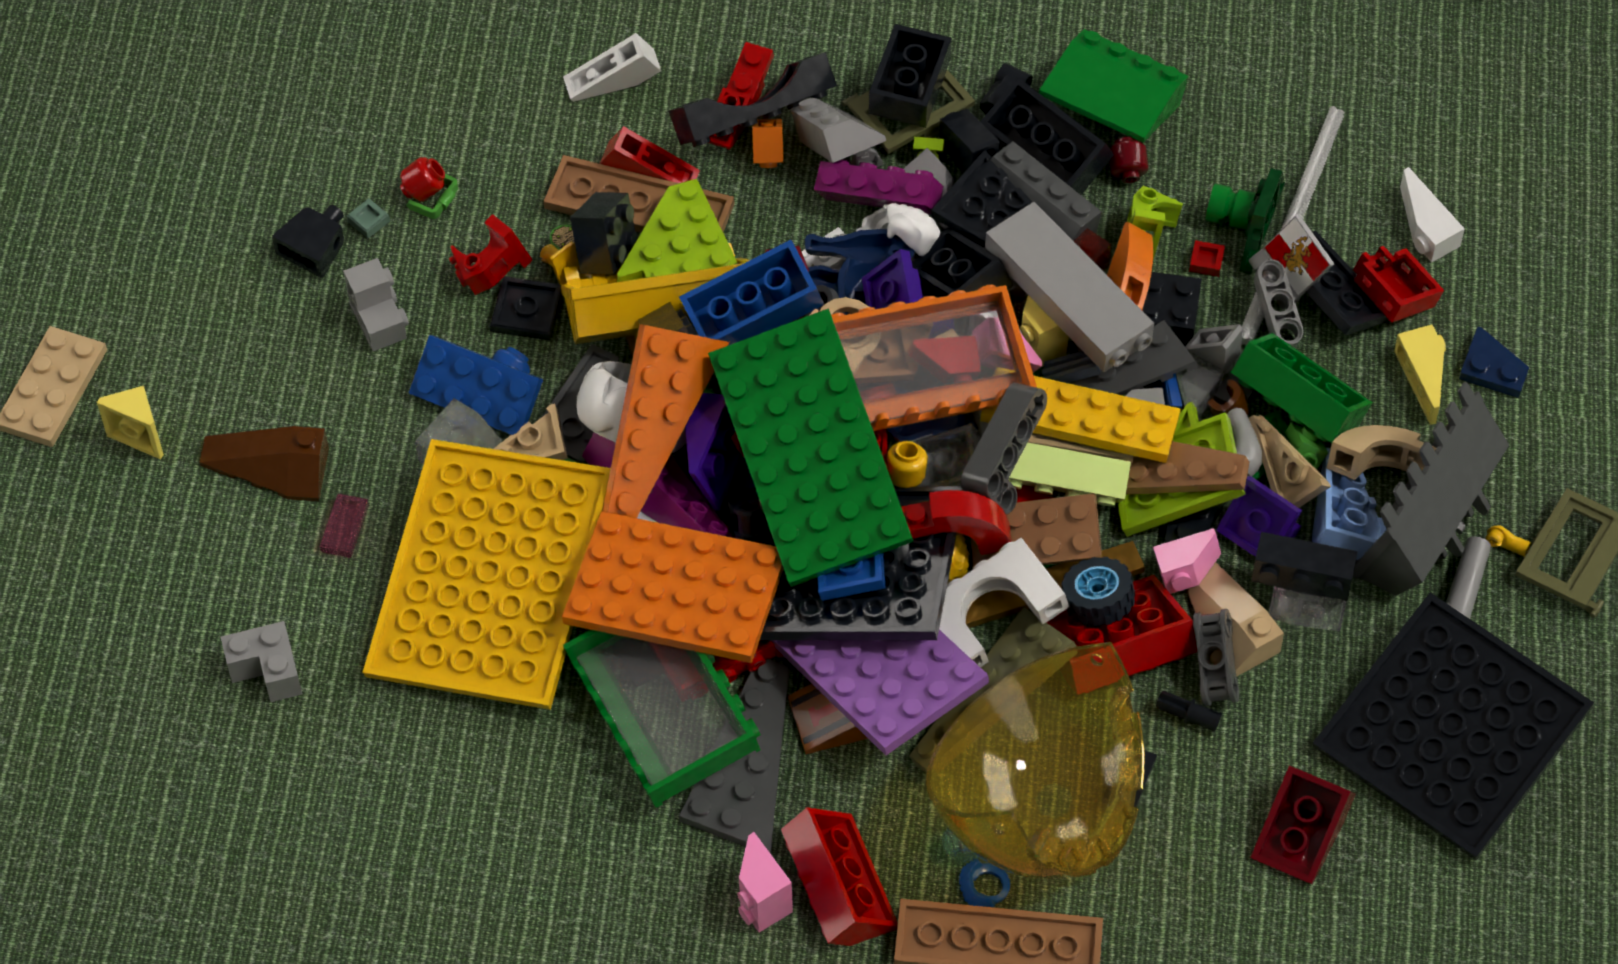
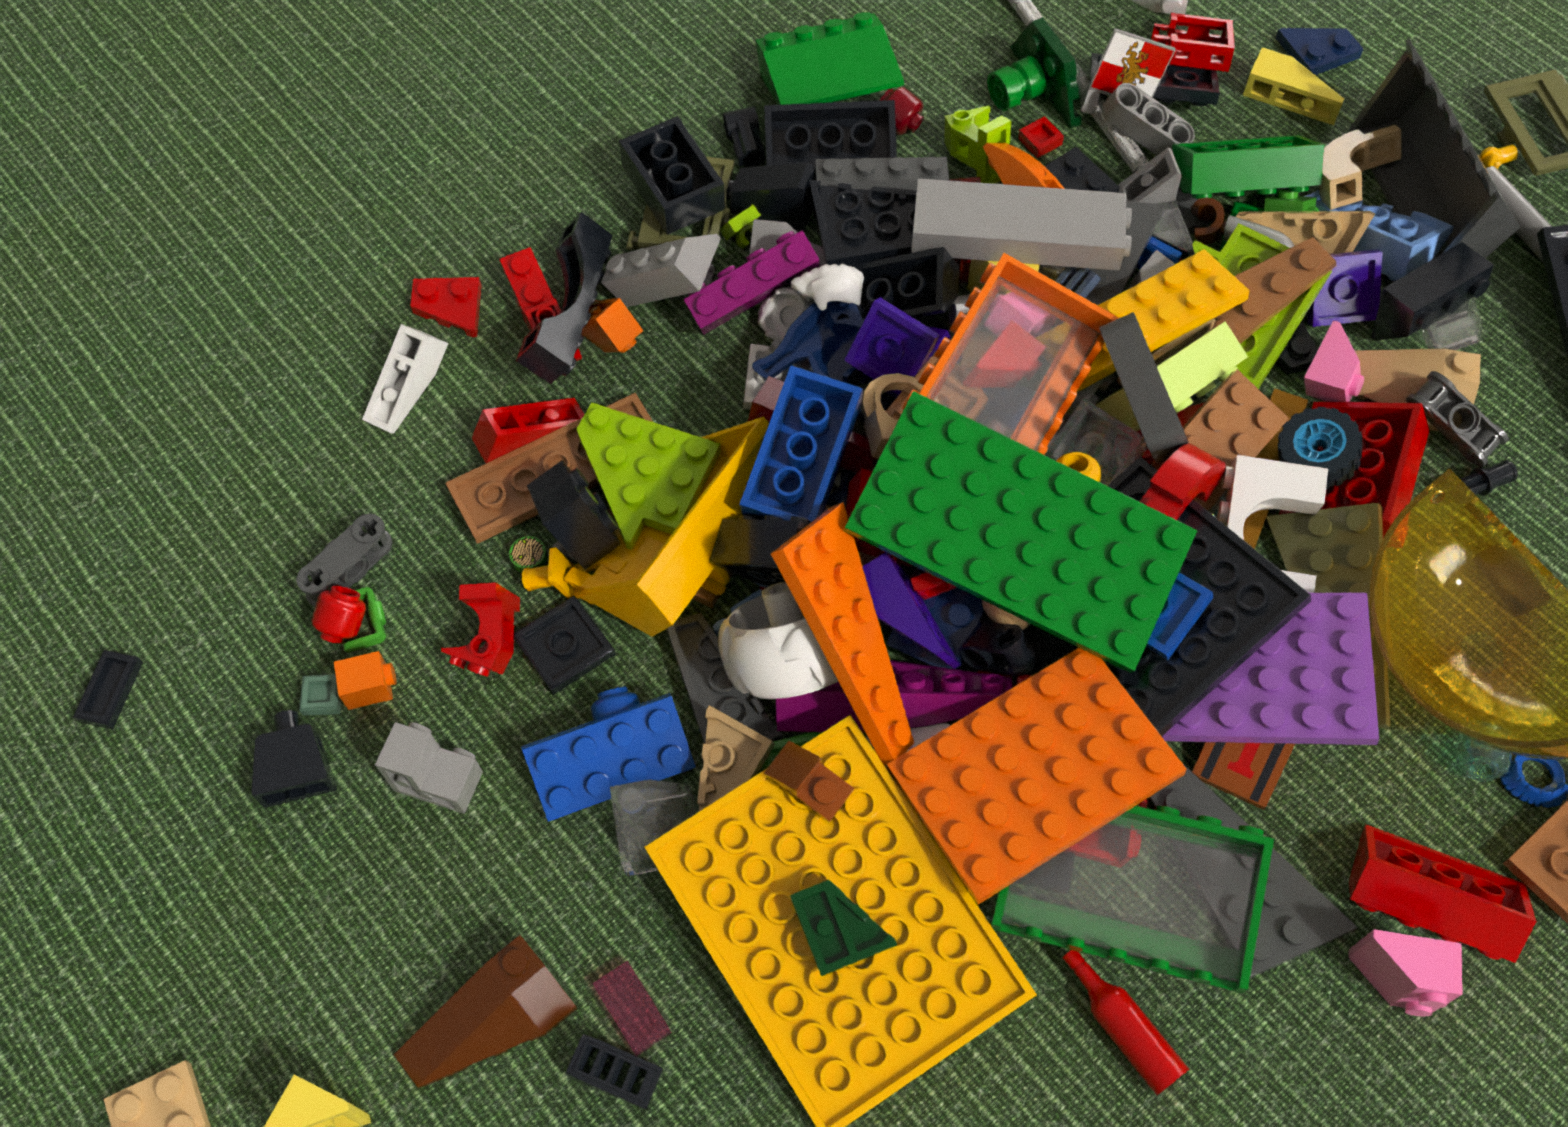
camera: 45 degrees left, 5 degrees up
(263, 115) = (108, 689): none -> black tile
(292, 526) = (605, 1050): none -> black slope
(396, 229) = (364, 680): none -> orange brick
(462, 151) = (346, 557): none -> dark grey piece
(479, 568) = (837, 928): none -> dark green wing
(550, 482) = (809, 780): none -> dark orange slope
(580, 775) = (1129, 1028): none -> red piece
(695, 46) = (448, 301): none -> red wing

